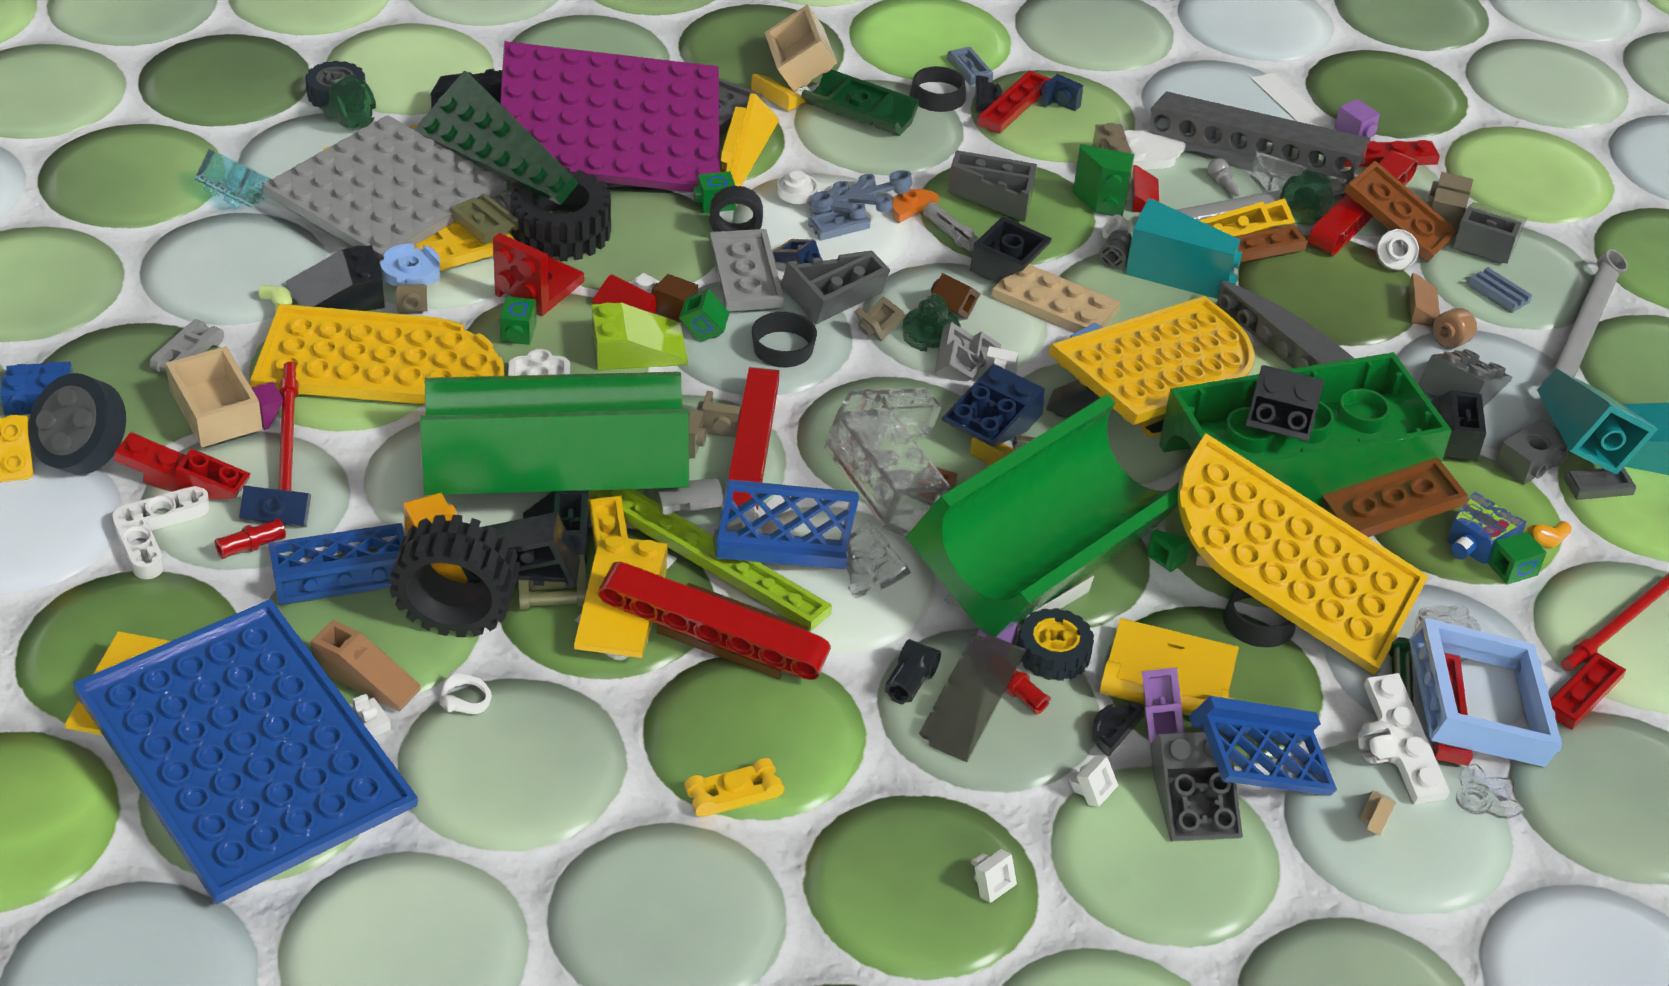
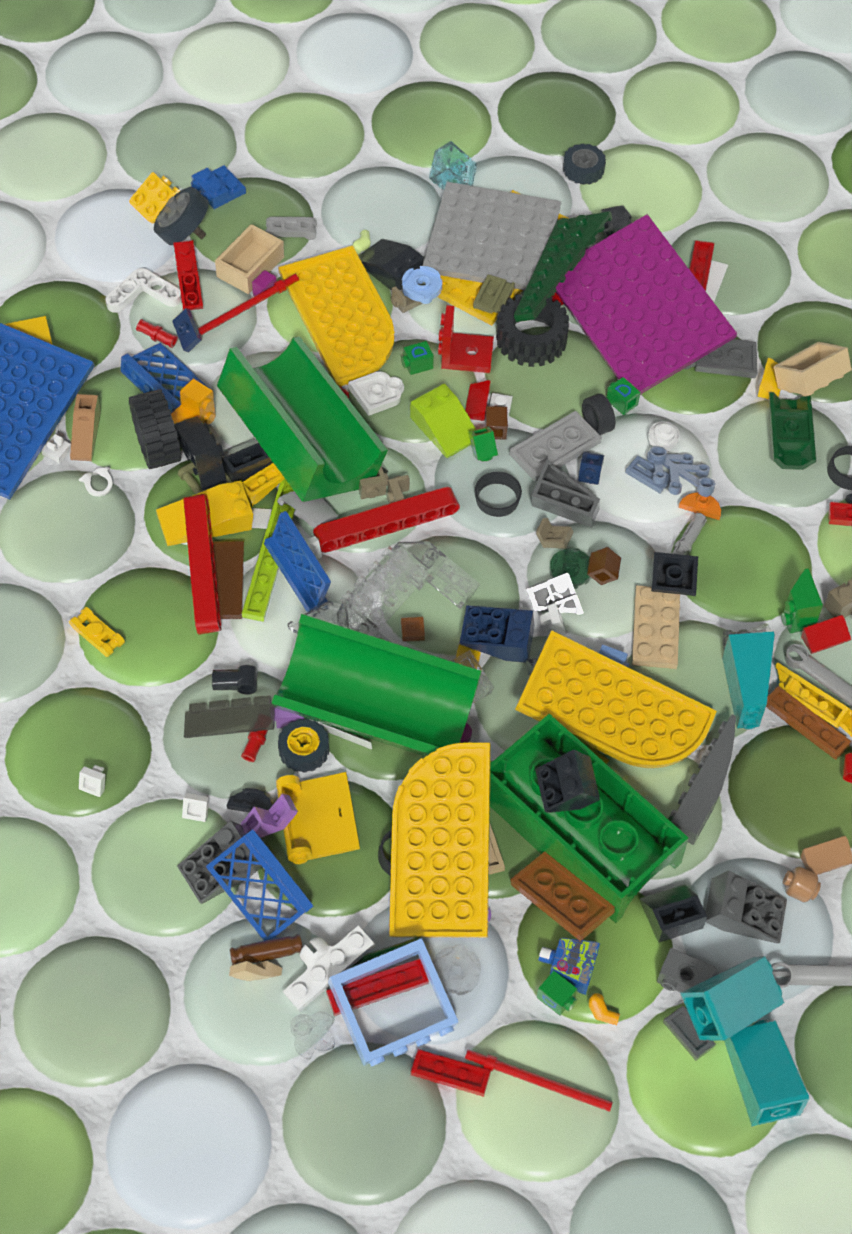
camera: 65 degrees right, 15 degrees up
(350, 103) = (562, 179): clear green tile -> none
(747, 137) = (695, 386): yellow wedge -> none
(993, 182) = (752, 541): dark grey wedge -> none
(1350, 791) = (266, 950): none -> reddish brown axle

